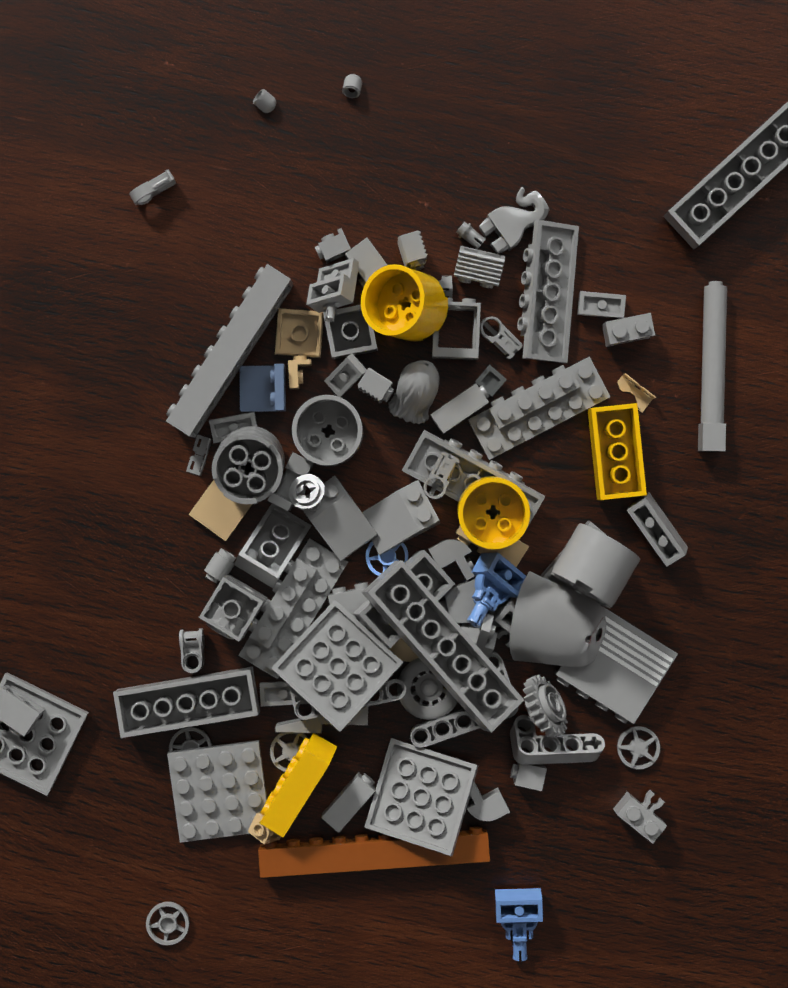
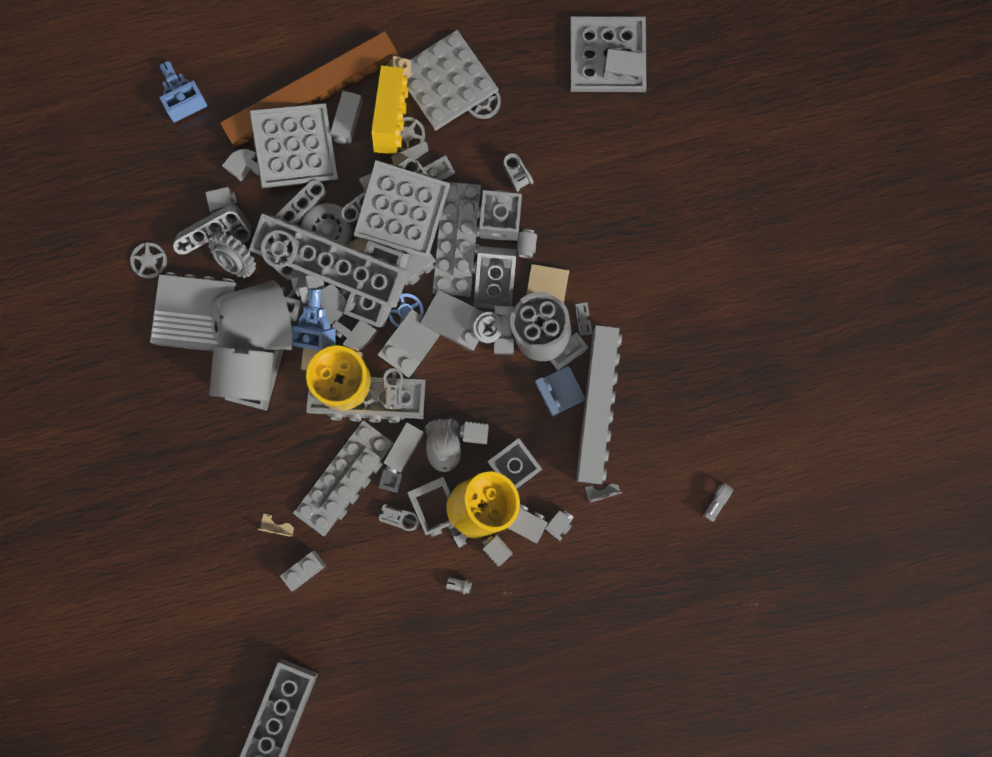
camera: 155 degrees right, 5 degrees down
(186, 702) = (501, 132): light grey brick -> none
(264, 101) = (666, 611): light grey piece -> none
(279, 261) = (595, 495): none -> light grey piece
(296, 375) = (540, 412): tan bracket -> none
(299, 333) = (553, 446): tan tile -> none
(316, 416) = (495, 365): light grey brick -> none
(333, 287) = (543, 492): light grey plate -> none
(345, 375) = (501, 430): light grey plate -> none
(352, 81) = (605, 659): light grey piece -> none
(479, 267) = (440, 563): light grey brick -> none
(490, 683) = (279, 248): none -> light grey wheel
(512, 222) = (431, 610): light grey hips -> none
(548, 291) = (378, 570): light grey plate -> none
(601, 304) = (333, 580): light grey plate -> none
(617, 451) = (267, 472): yellow brick -> none
(640, 816) = (122, 210): light grey brick -> none
(657, 529) = (209, 429): light grey brick -> none
(712, 427) = (204, 528): light grey brick -> none

